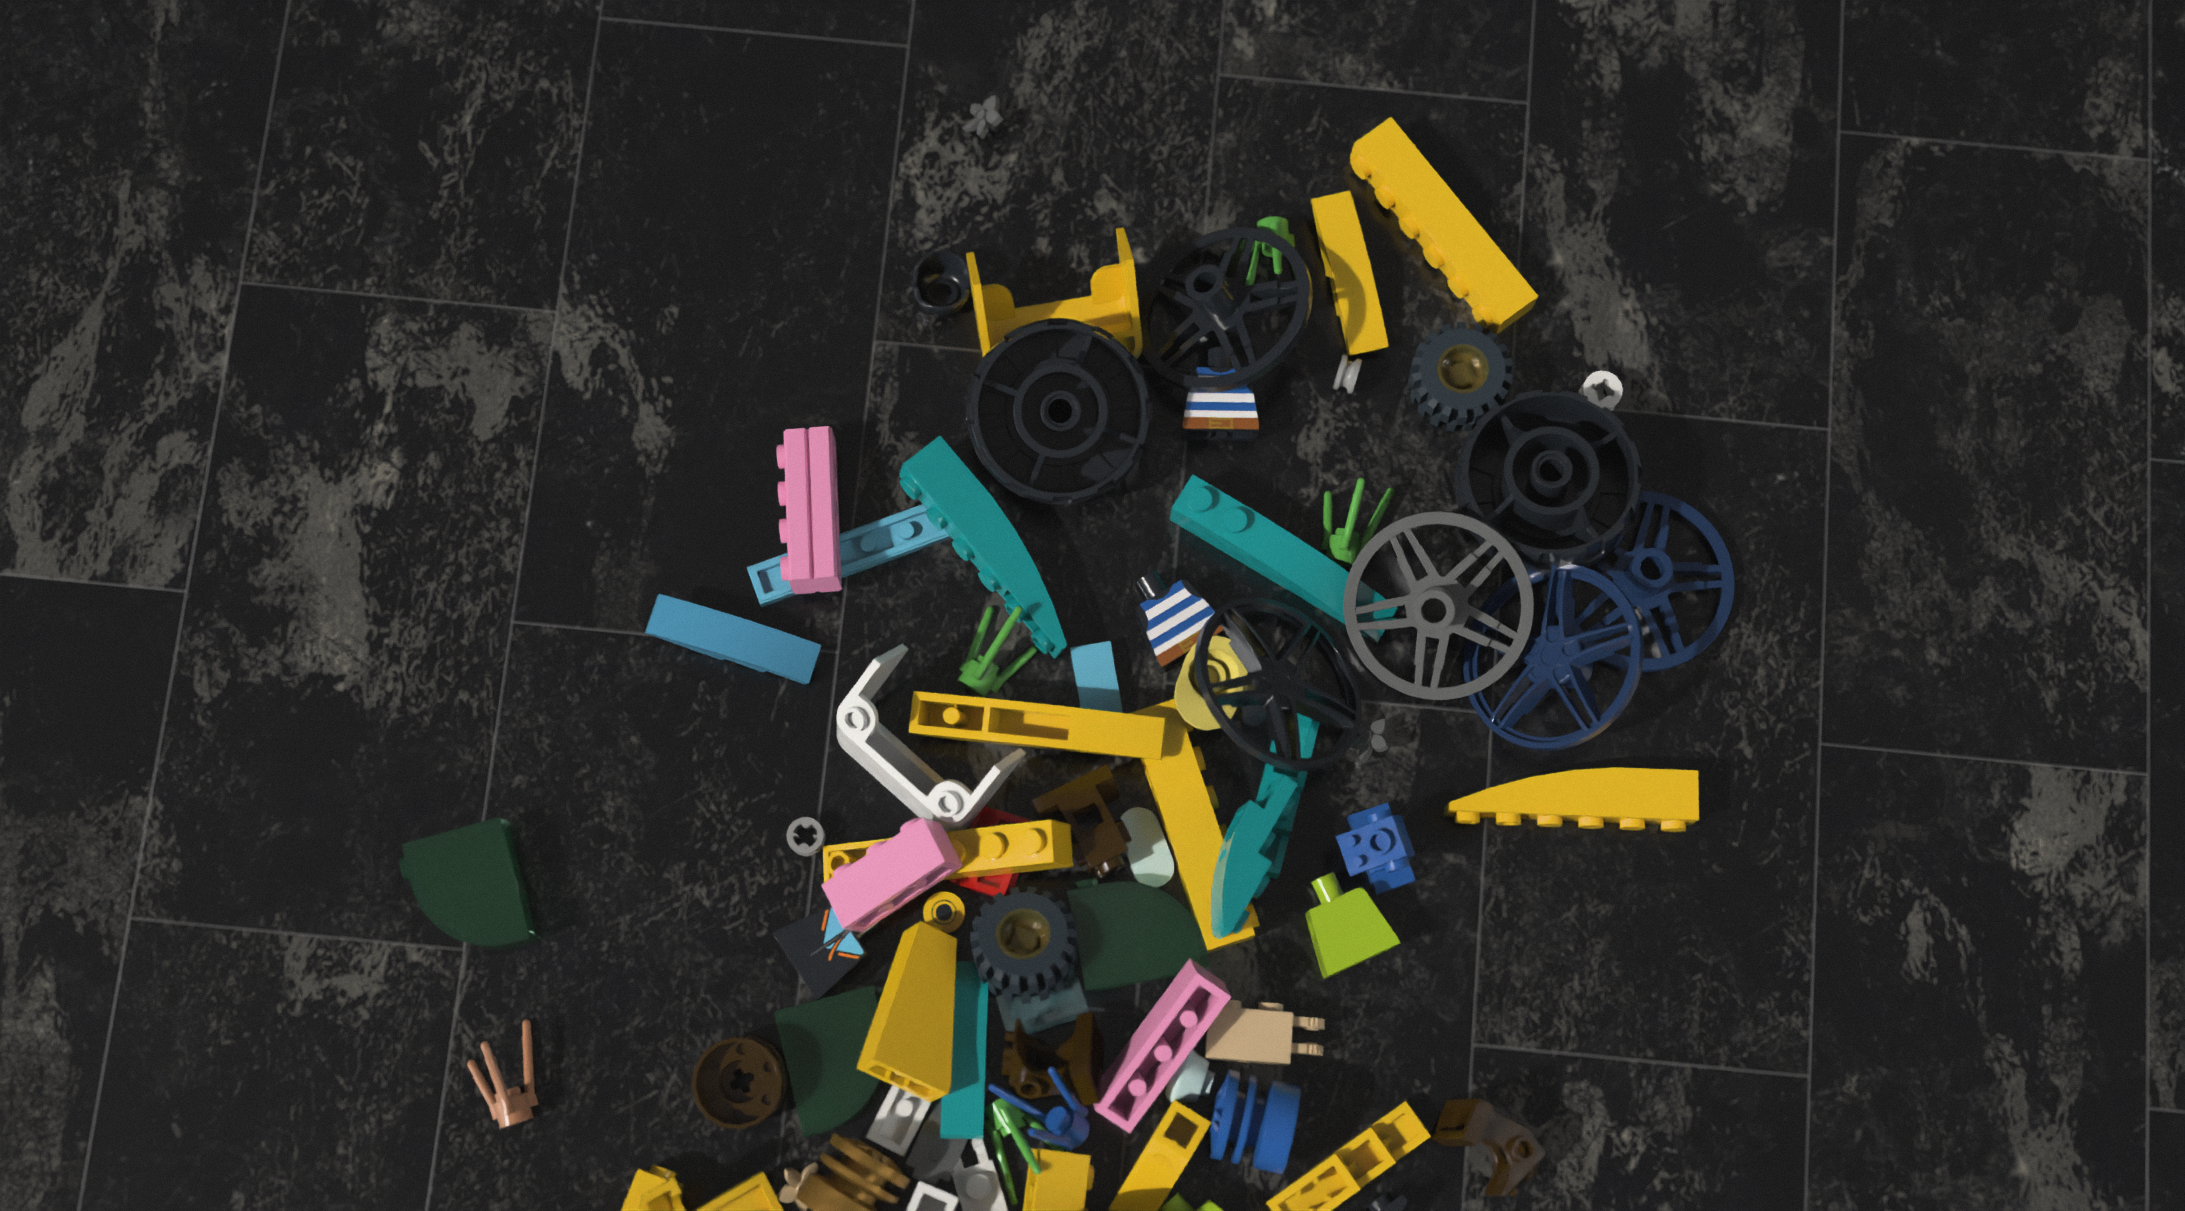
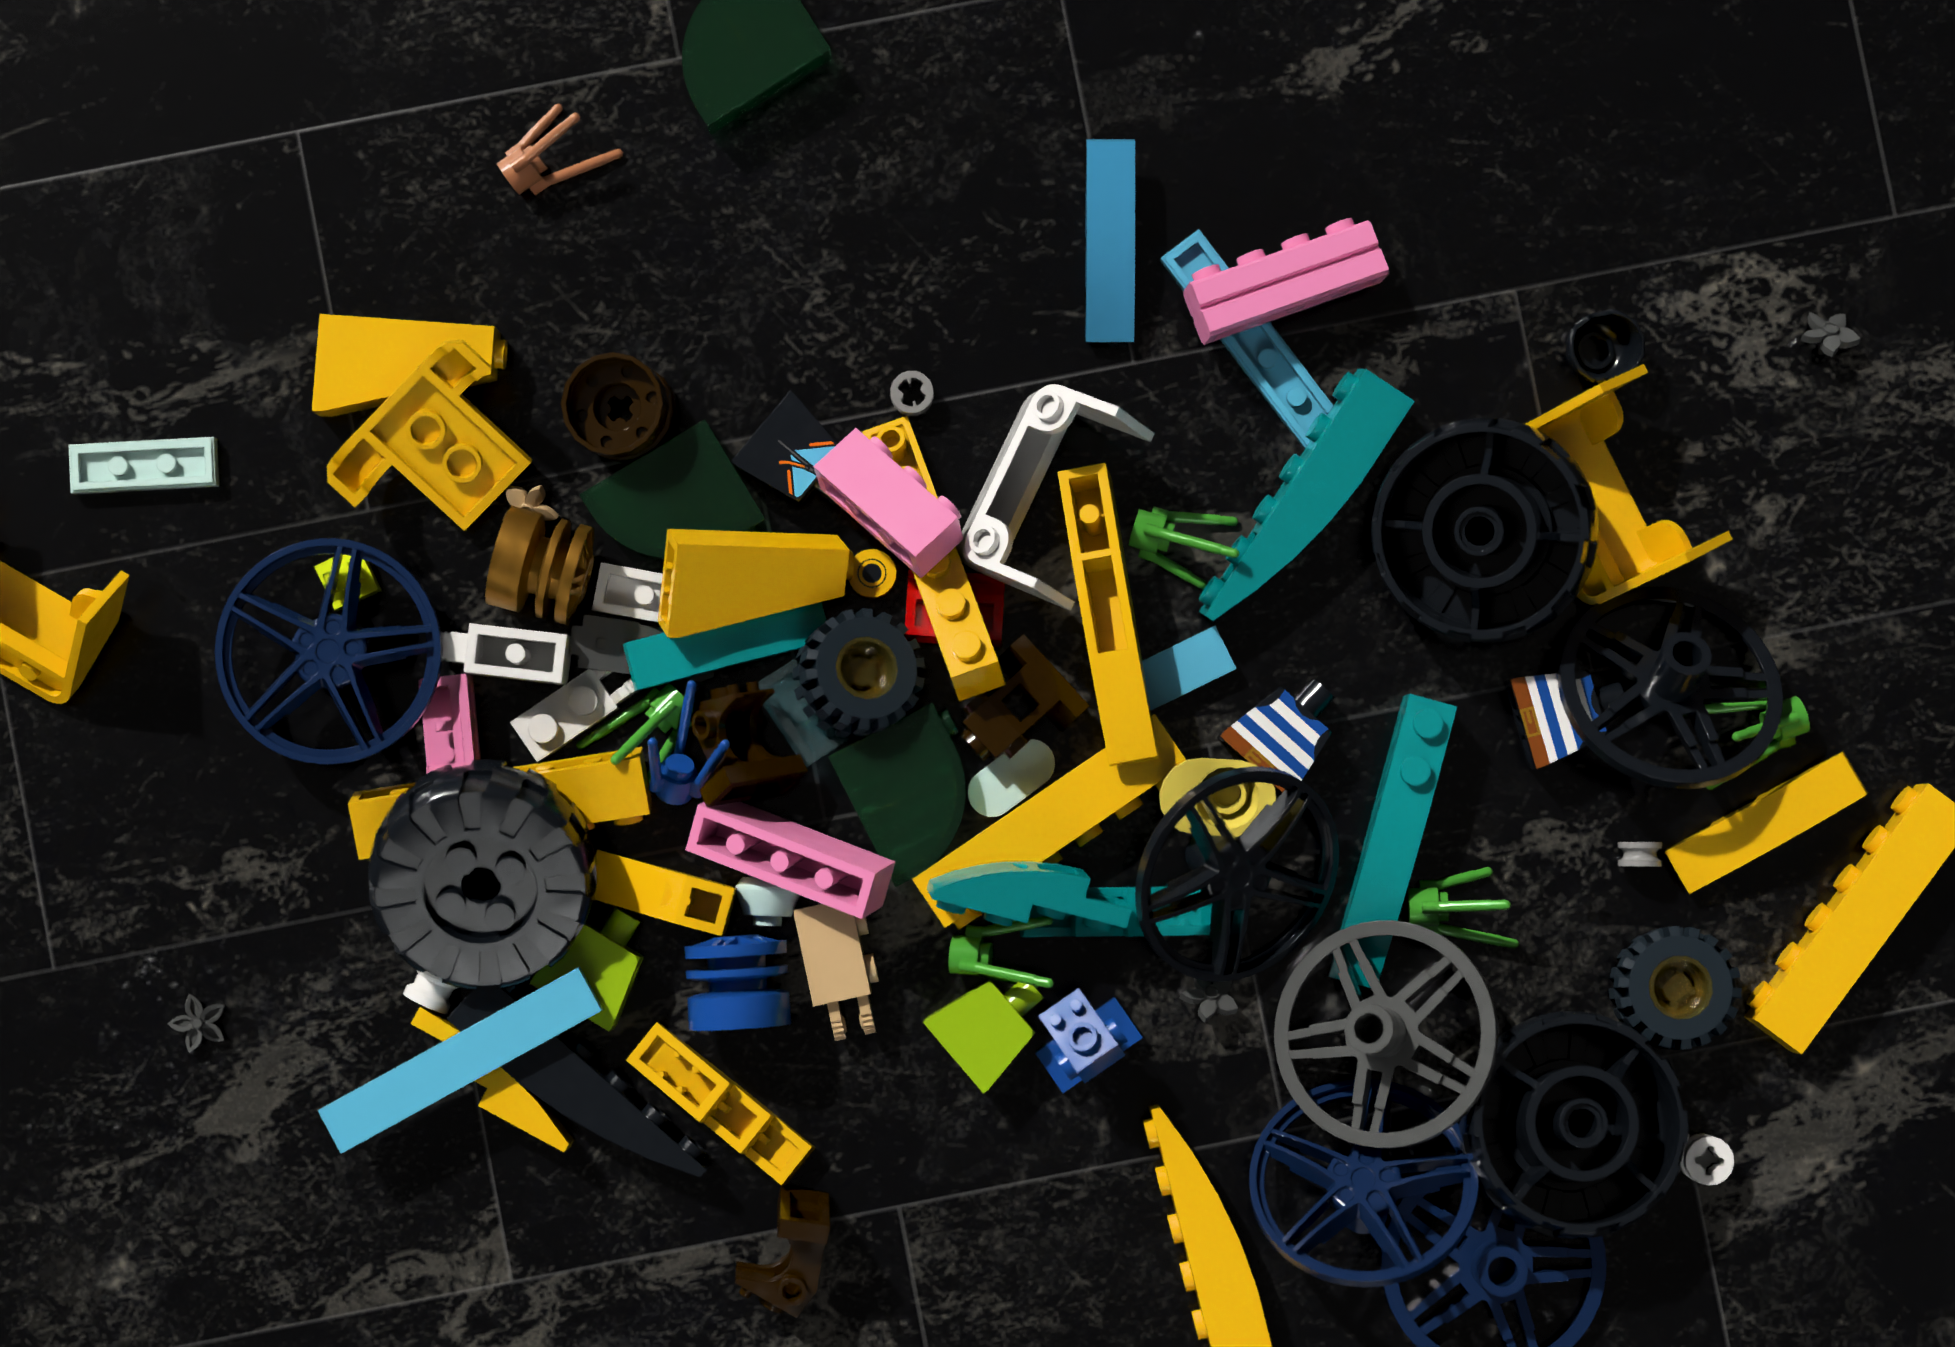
camera: 75 degrees right, 10 degrees up
(1285, 920) = (974, 957): none -> bright green plant

